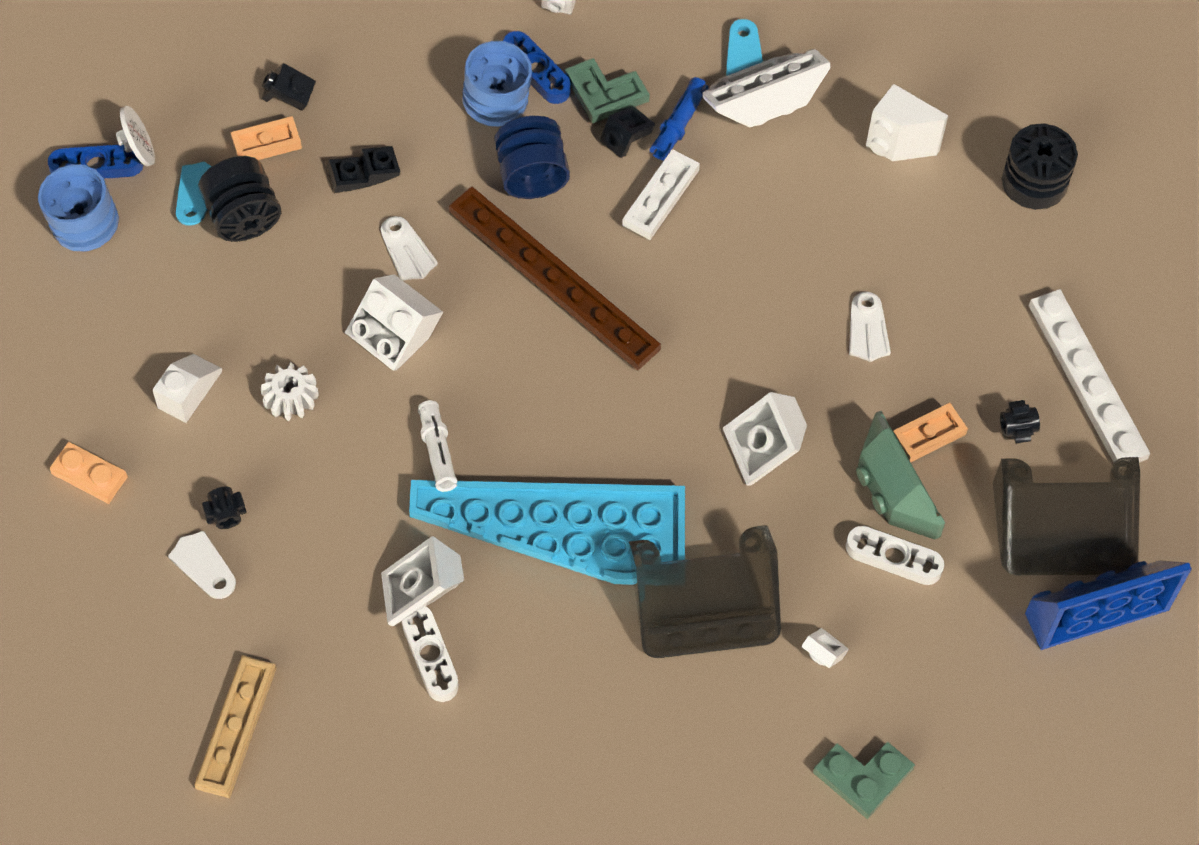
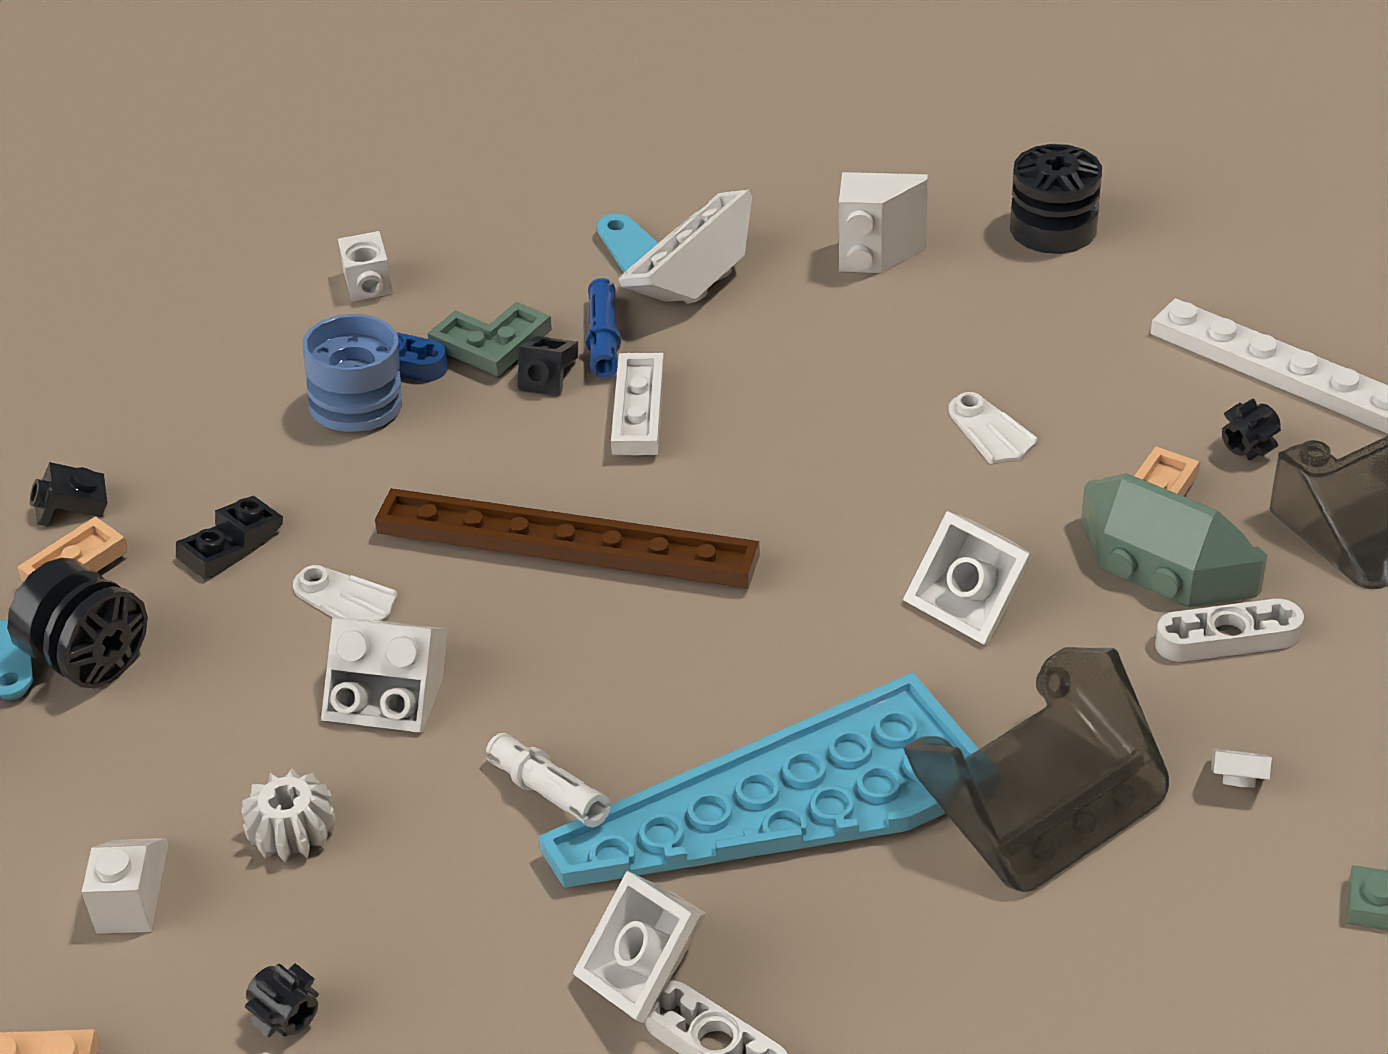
camera: 25 degrees left, 20 degrees down
(531, 157) = (451, 421): dark blue wheel -> none

